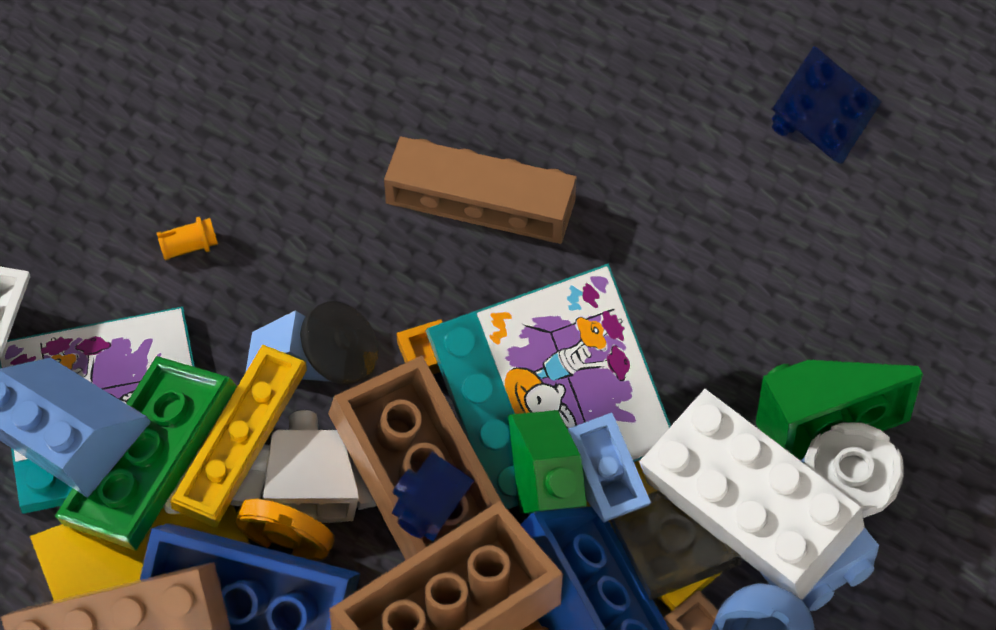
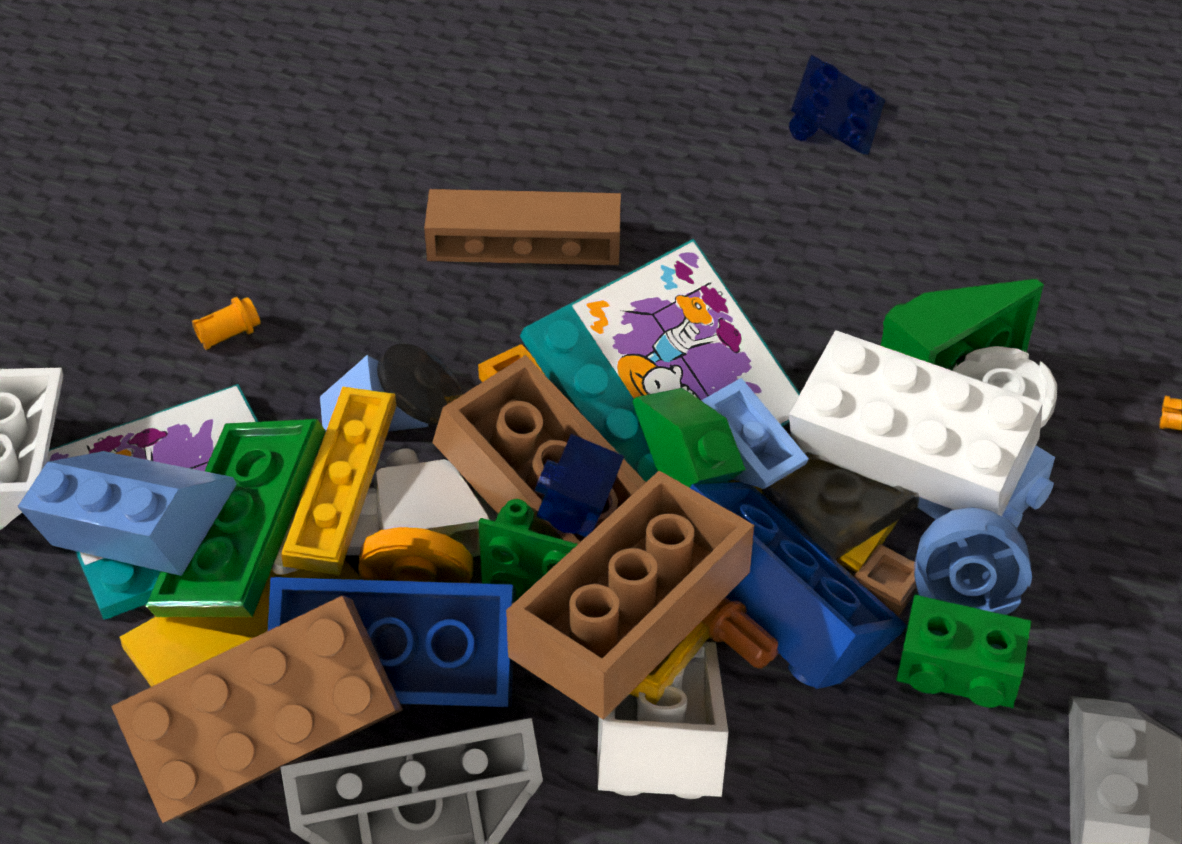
camera: 15 degrees left, 10 degrees down
(368, 539) = (514, 552): none -> green hinge

